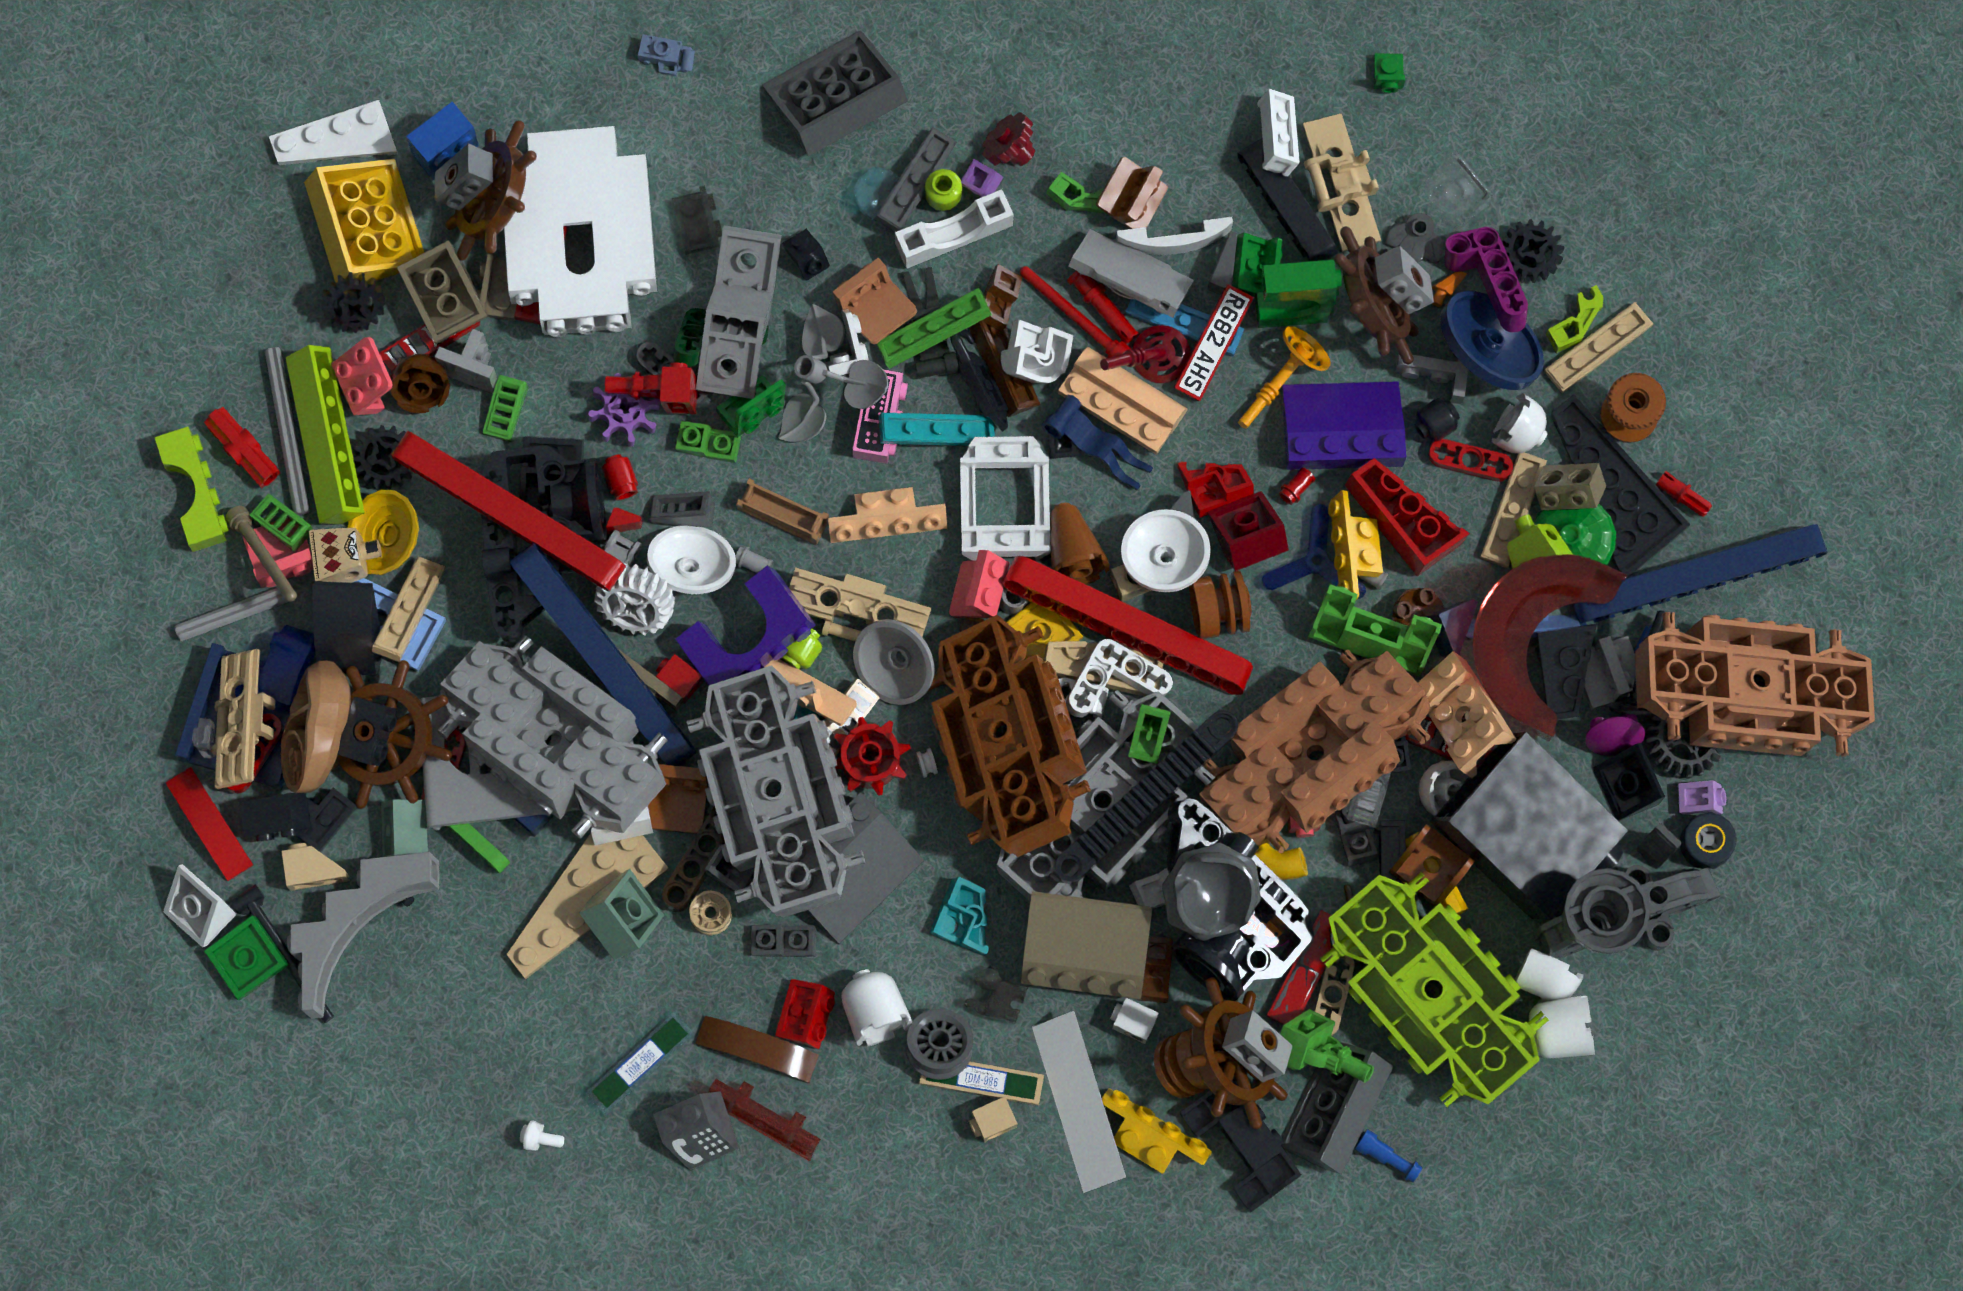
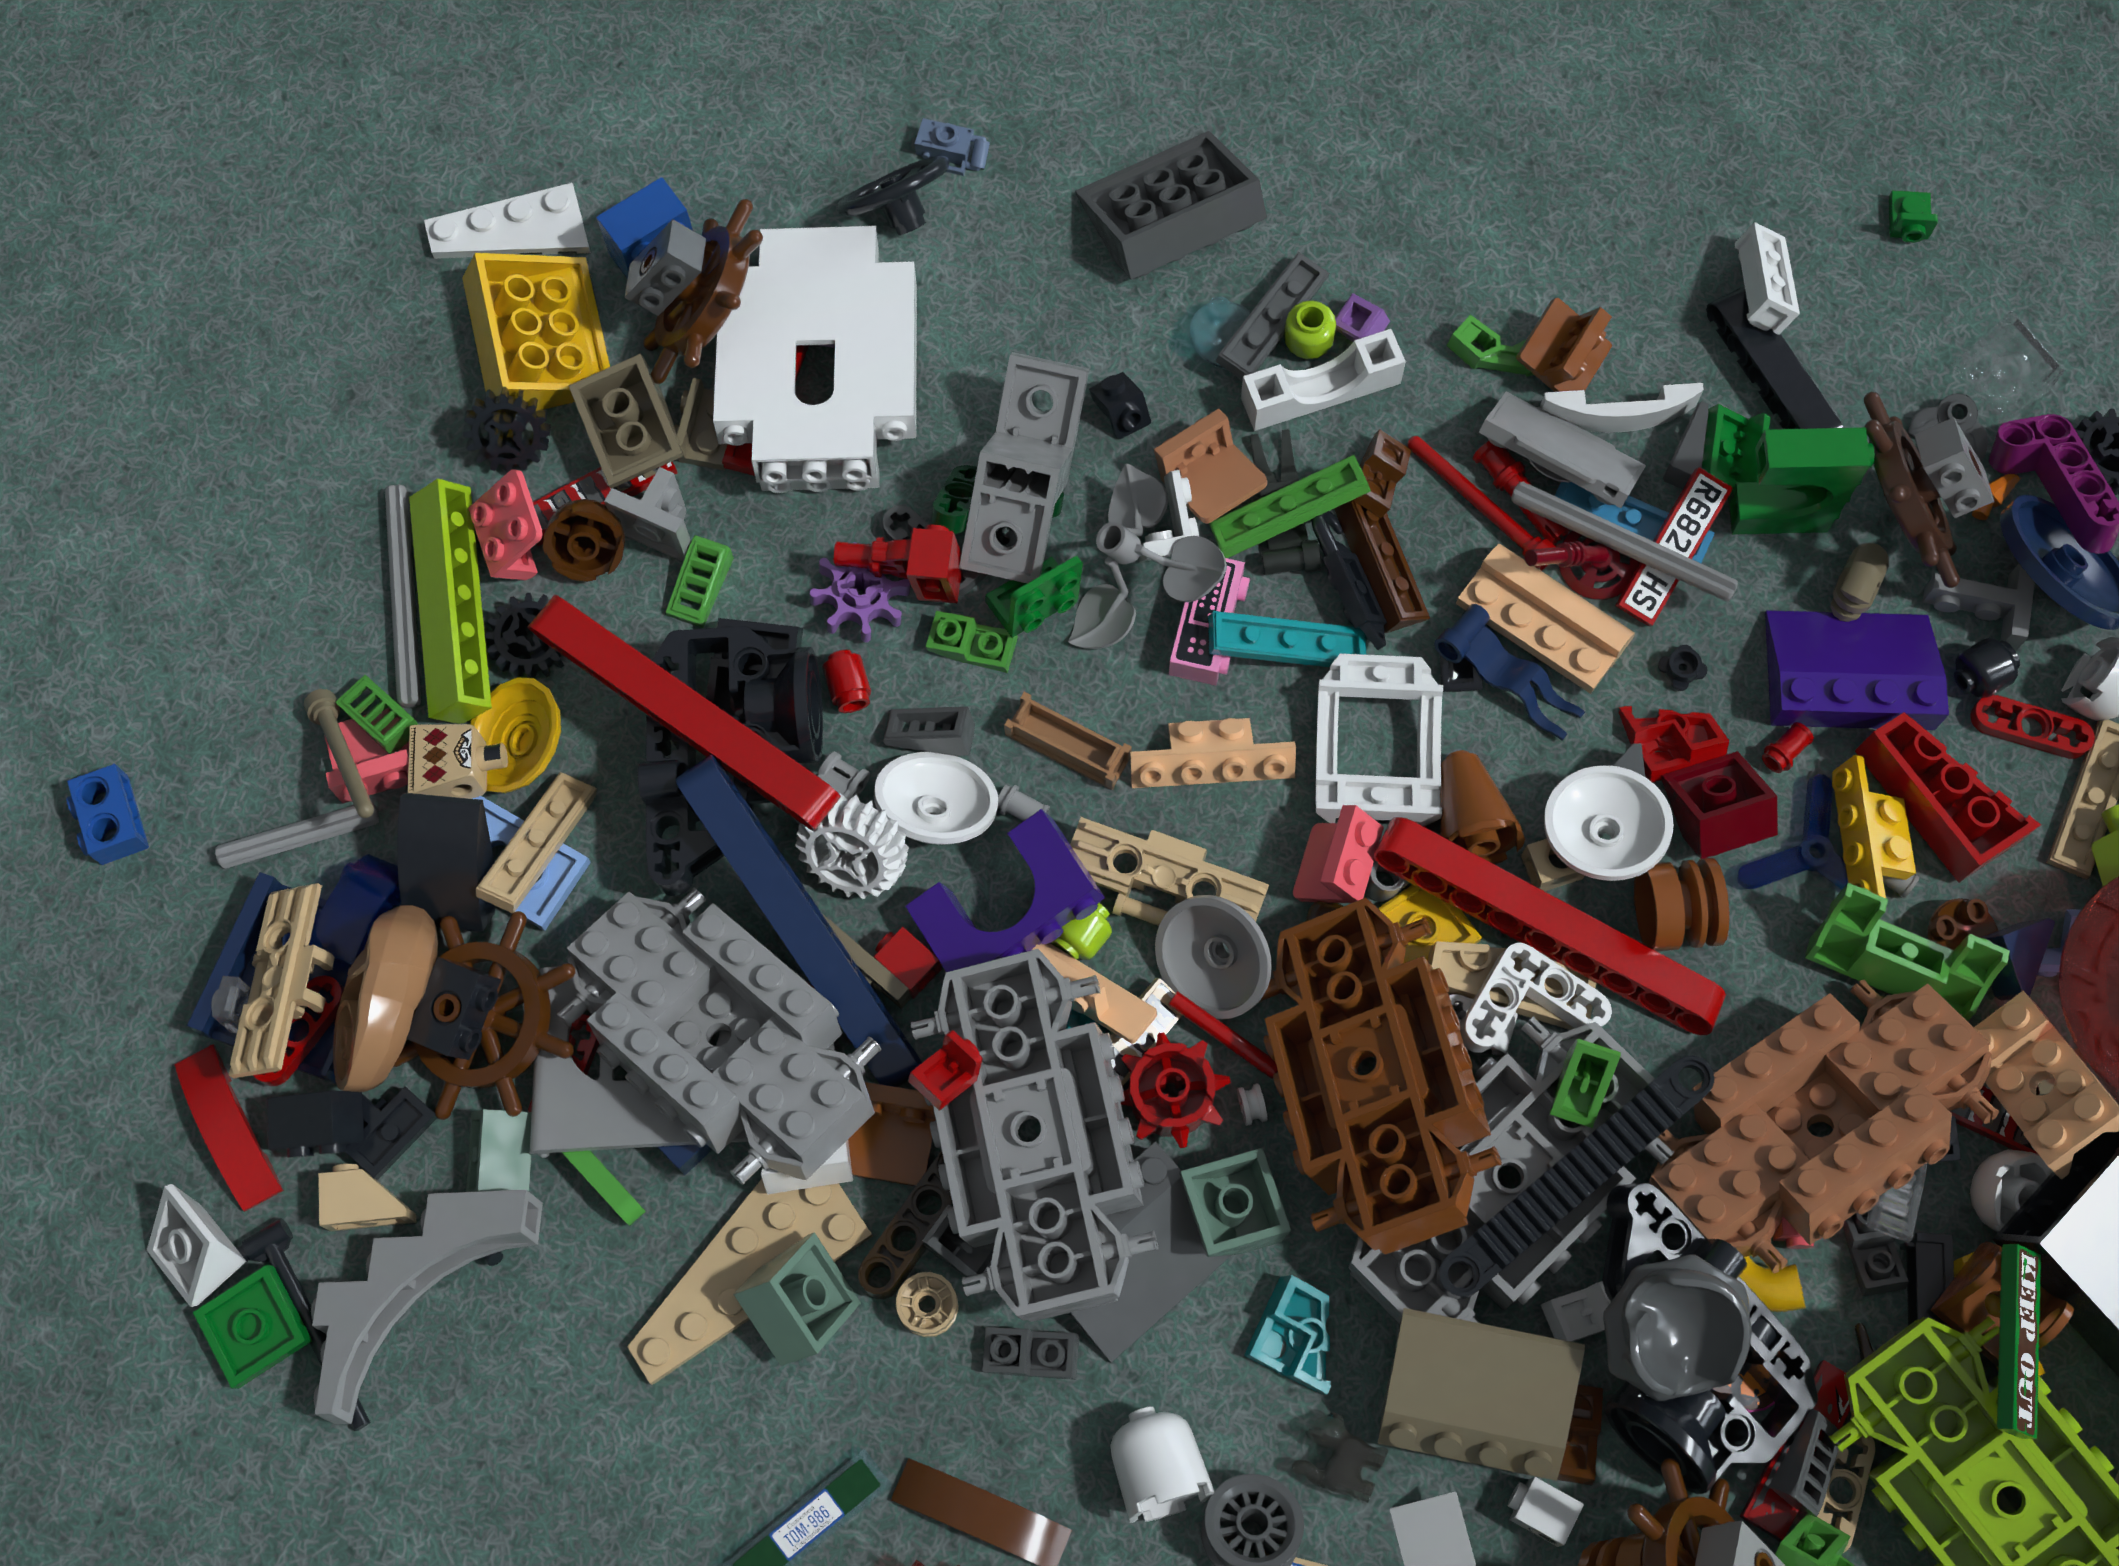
camera: 10 degrees right, 5 degrees down
(98, 605) = (114, 811): none -> blue brick
(201, 523) = (271, 708): lime arch -> none
(242, 447) = (338, 612): red piece -> none
(623, 521) = (846, 740): red slope -> none
(628, 99) = (897, 194): none -> black piece
(696, 221) = (976, 355): clear smoke bracket -> none
(715, 752) = (947, 1071): none -> red bracket
(805, 1013) = (1056, 1466): red bracket -> none
(903, 714) = (1223, 1034): none -> red bar
(918, 831) = (1236, 1204): none -> sand green slope
(1010, 141) = (1403, 273): dark red plant -> none
(1036, 353) = (1429, 546): white brick -> none
(1175, 341) = (1624, 541): none -> light grey axle
(1225, 423) = (1683, 656): none -> black plate
(1296, 982) = (1804, 1477): none -> dark grey slope
(1305, 348) = (1796, 568): light orange dish -> none
(1347, 360) = (1859, 581): none -> dark tan arm
(1348, 177) = (1854, 338): tan piece -> none
(1435, 885) = (2019, 1341): none -> tile

